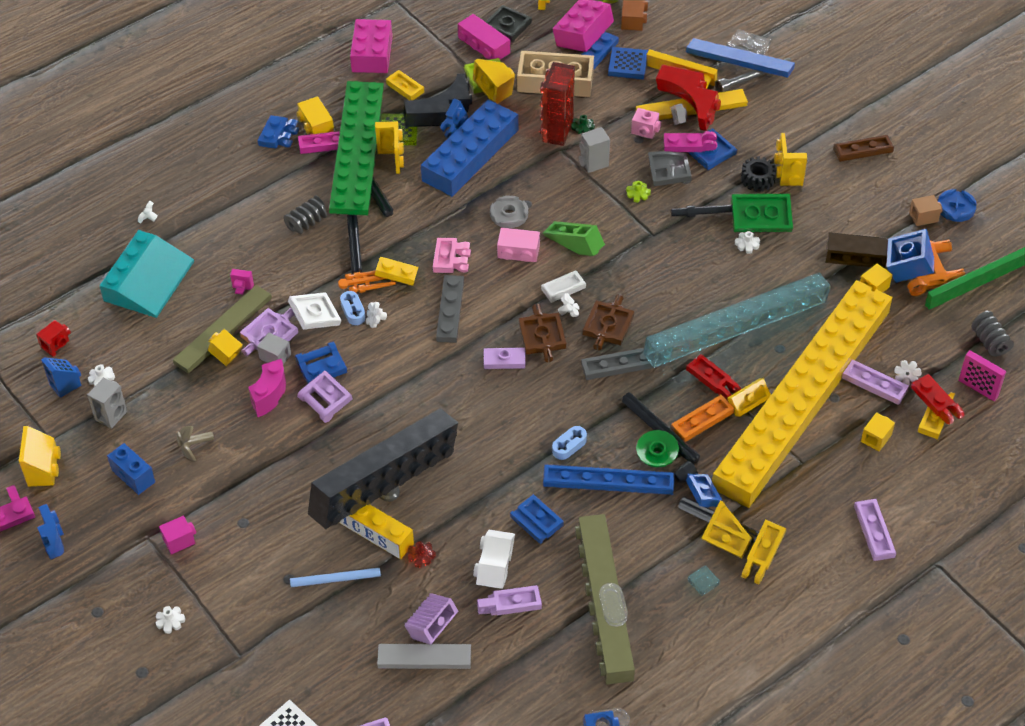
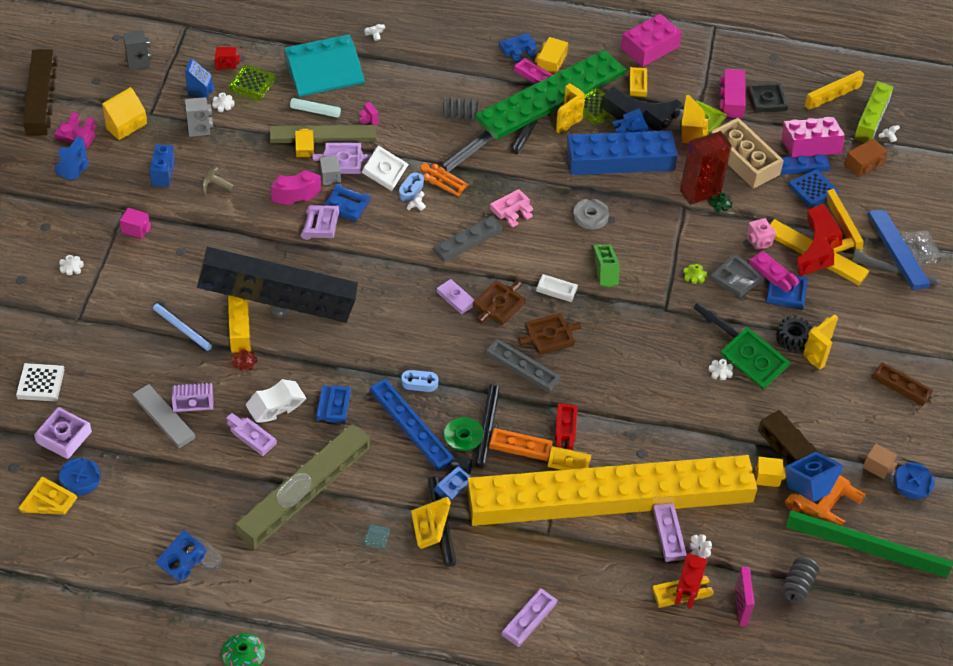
camera: 45 degrees right, 0 degrees up
(102, 338) = (252, 82): none -> clear neon green tile
(186, 313) = (315, 107): none -> light aqua axle
(396, 271) = (466, 187): yellow plate -> none
(518, 245) = (563, 237): bright pink brick -> none
(569, 306) = (539, 301): white plant -> none
(594, 150) = (696, 220): light grey brick -> none
(679, 114) = (793, 248): light grey plate -> none
(736, 319) = (631, 405): clear light blue brick -> none
(764, 549) = (433, 554): yellow hinge -> none
(877, 431) = (622, 562): yellow brick -> none

